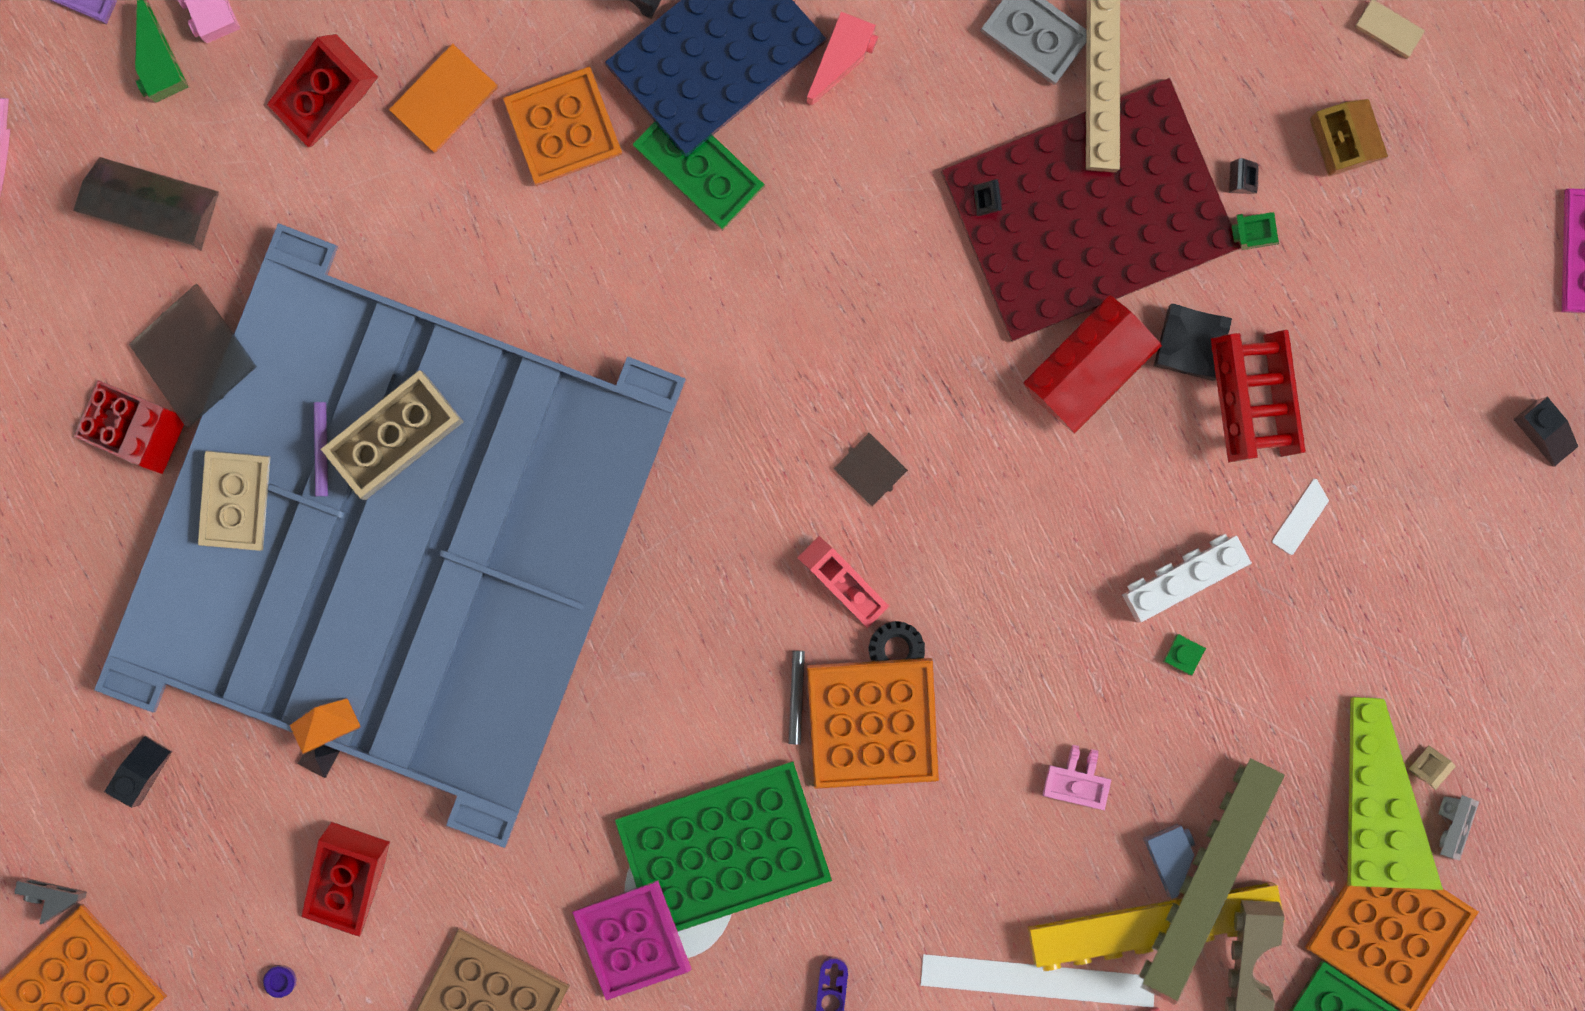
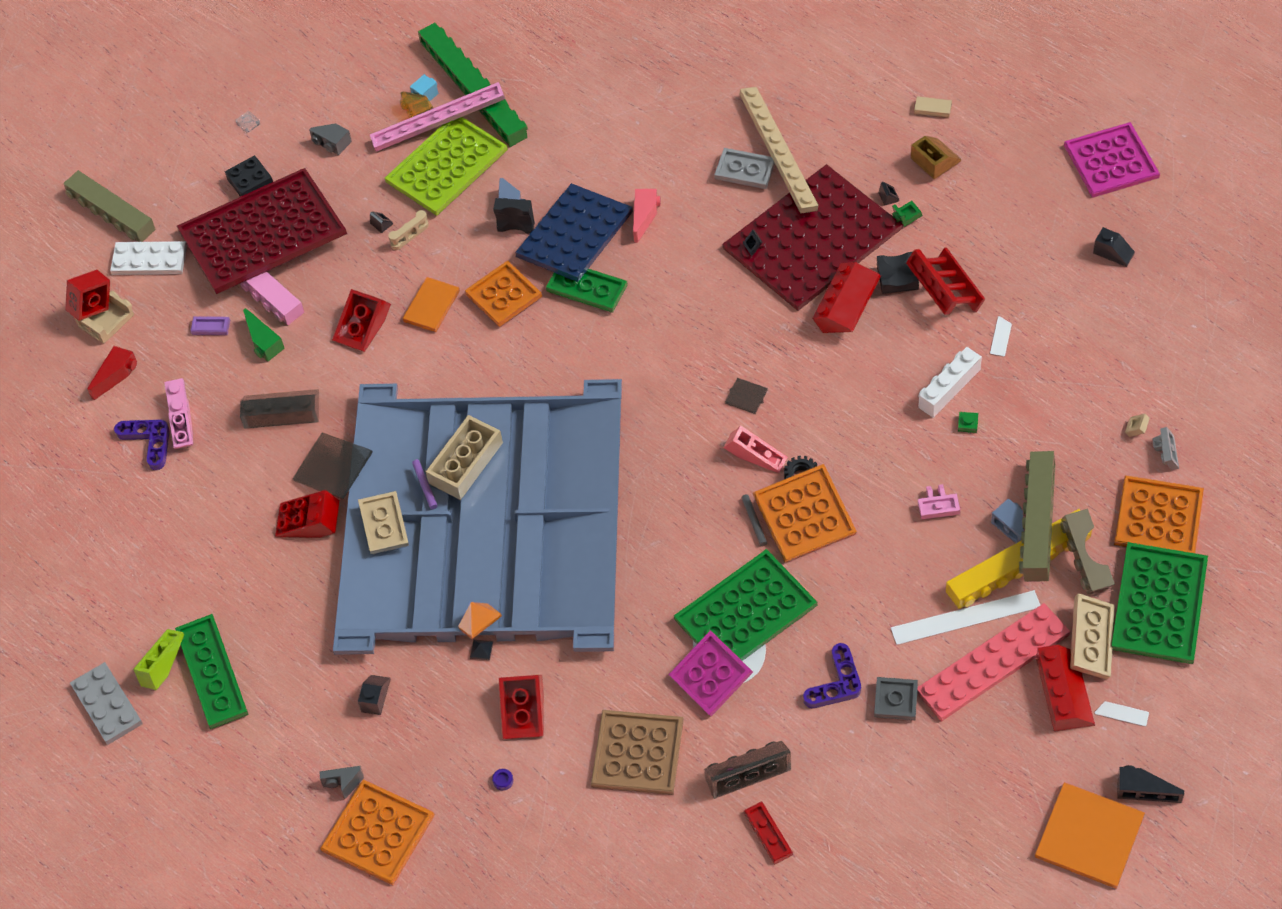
camera: 10 degrees left, 30 degrees down
(1384, 821) = (1124, 460): lime wing -> none

